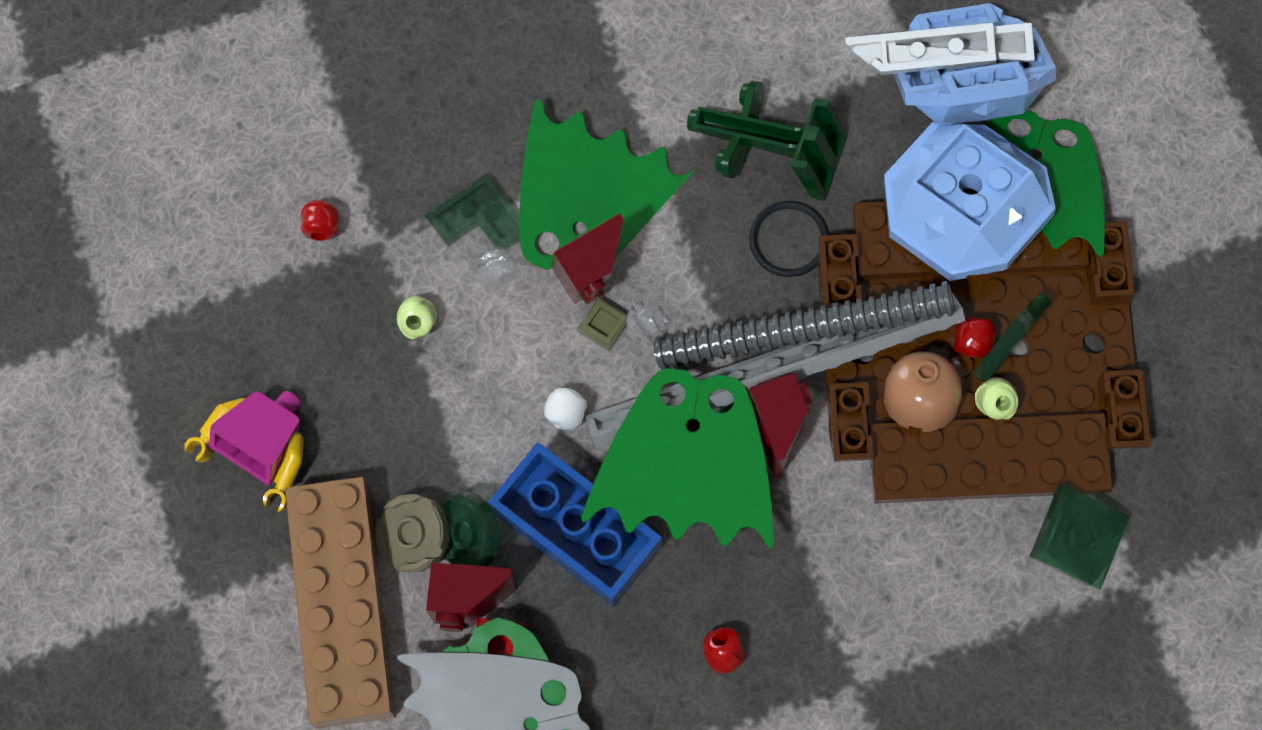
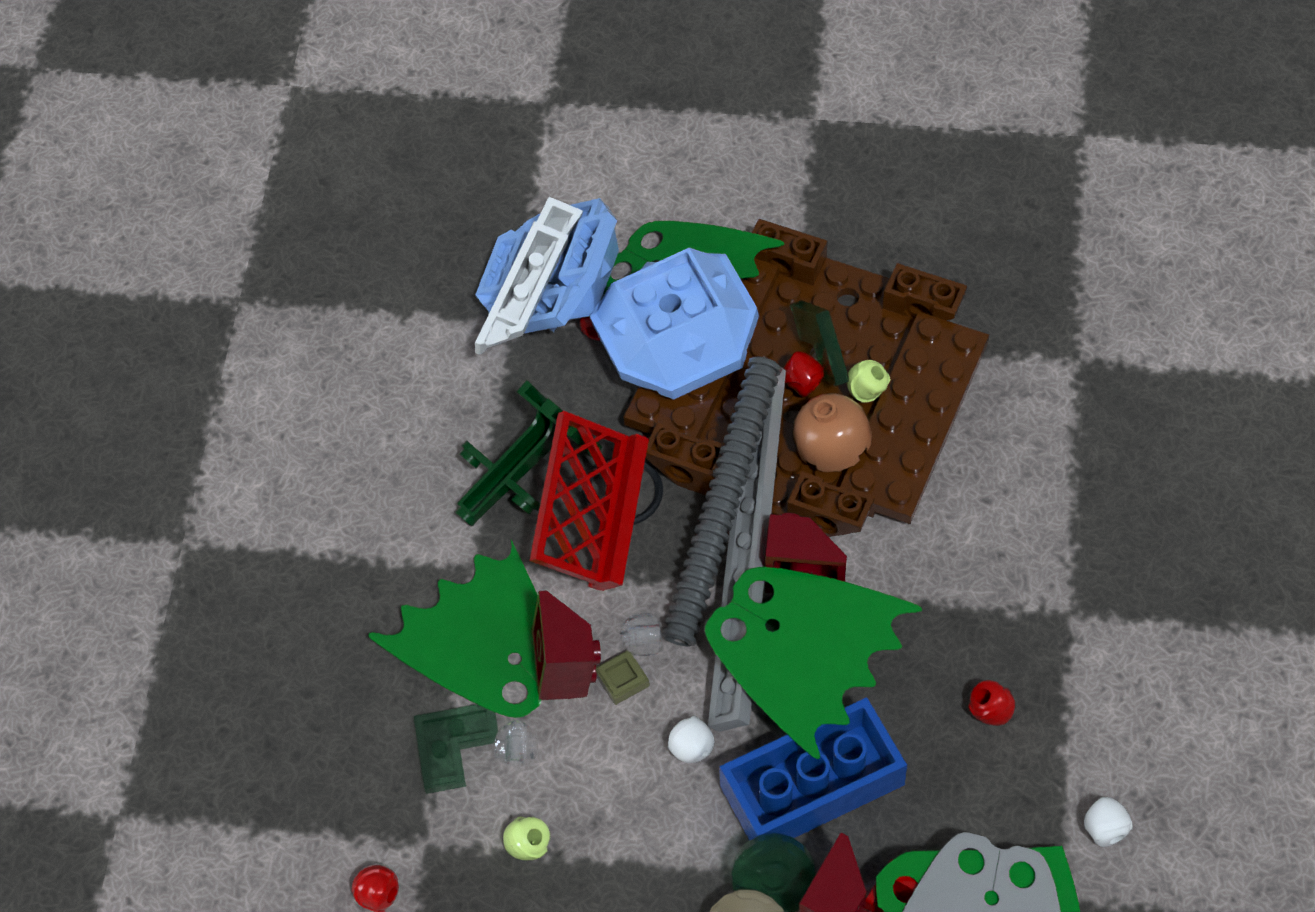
camera: 65 degrees left, 15 degrees down
(750, 243) = (615, 514): none -> red fence
(1079, 536) = (1018, 378): clear green tile -> none

